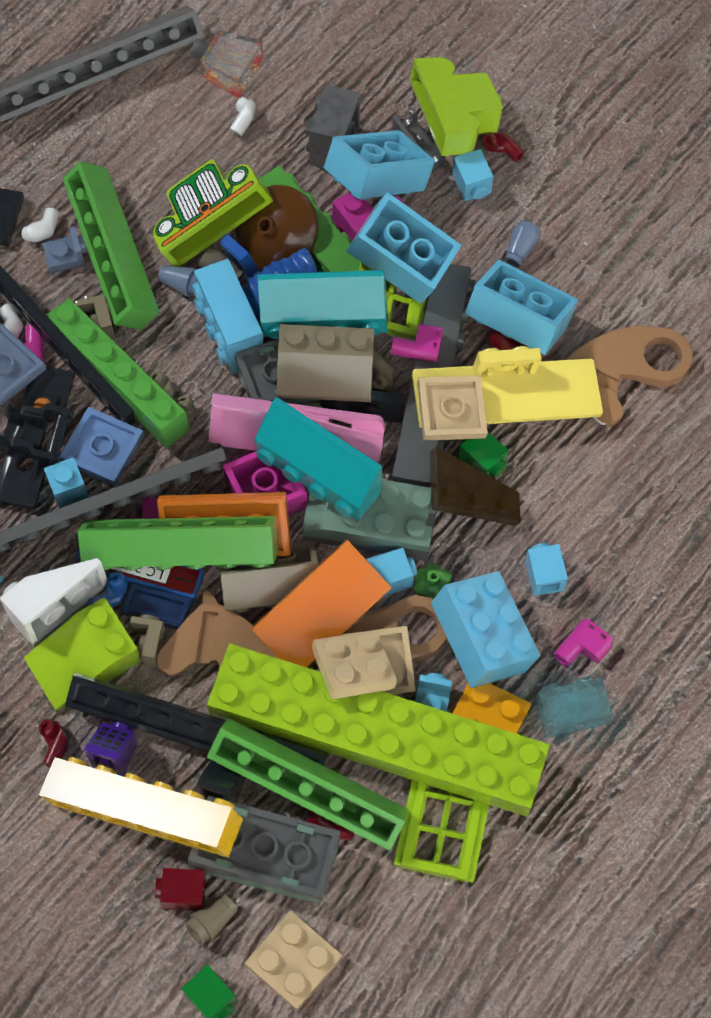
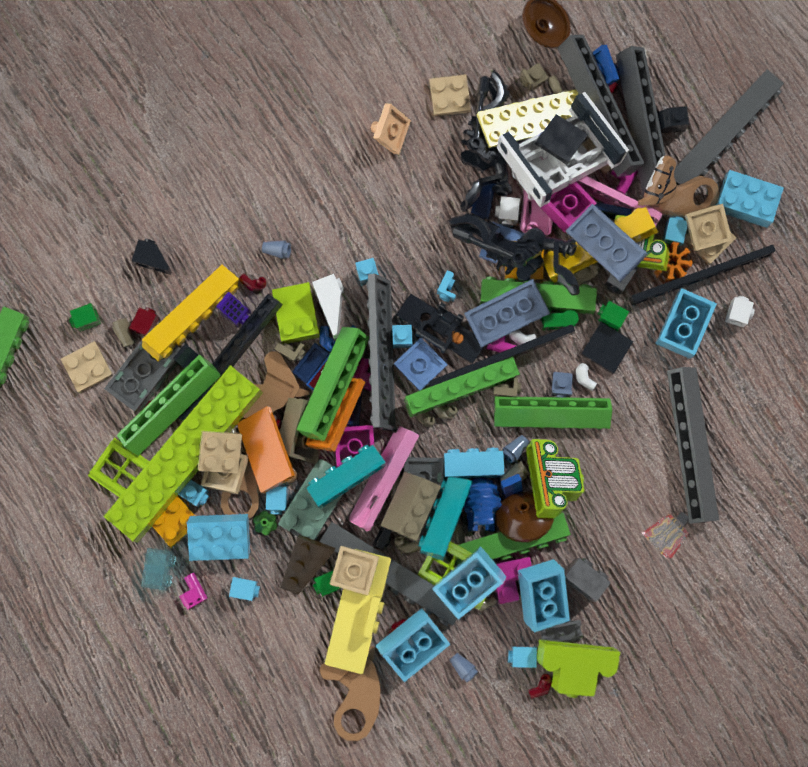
camera: 110 degrees right, 15 degrees up
(63, 924) = (149, 256): none -> black slope
(246, 112) = (621, 529): white arm -> none
(425, 347) = (406, 572): dark pink piece -> none

